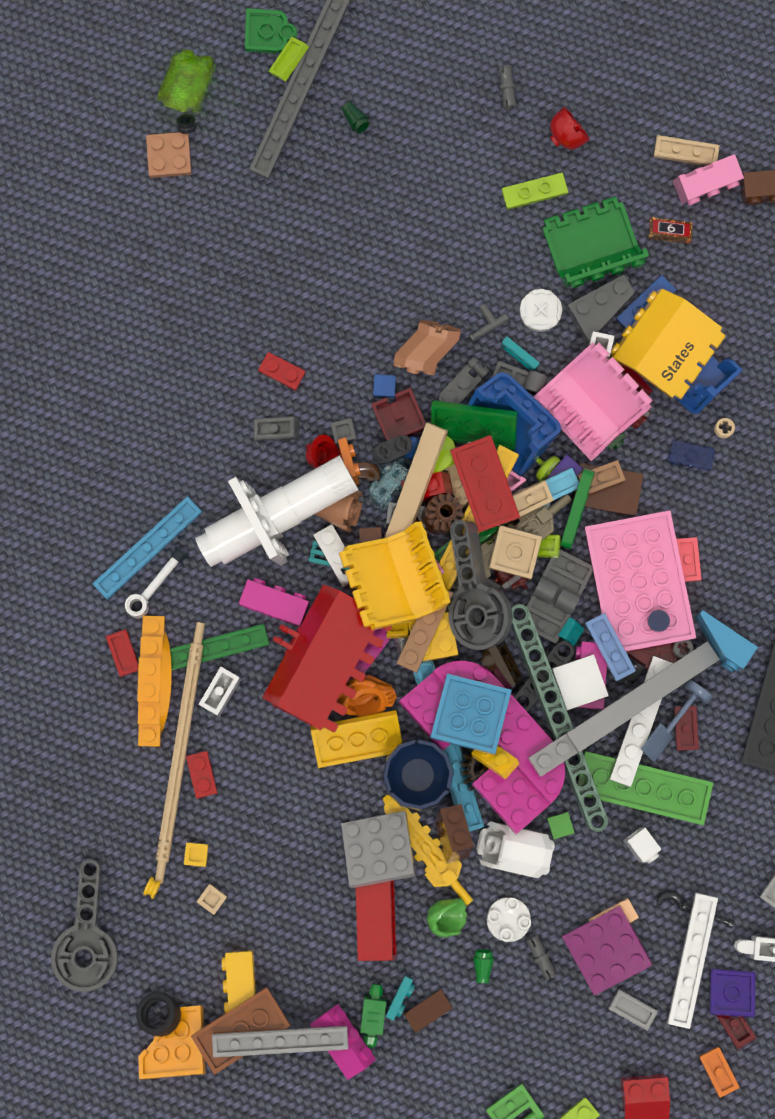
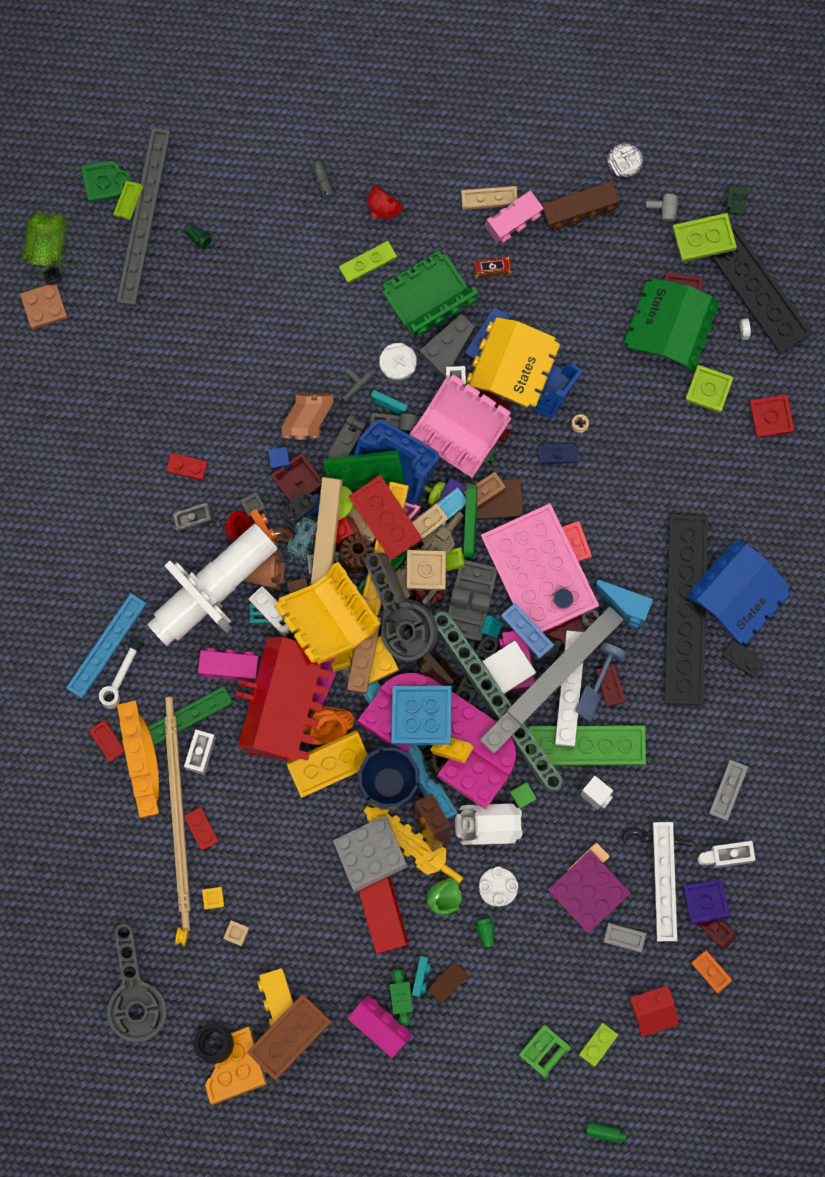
camera: 15 degrees left, 5 degrees down
(279, 1041) = (325, 1036): light grey tile -> none
(541, 957) = (534, 912): dark grey pin -> none

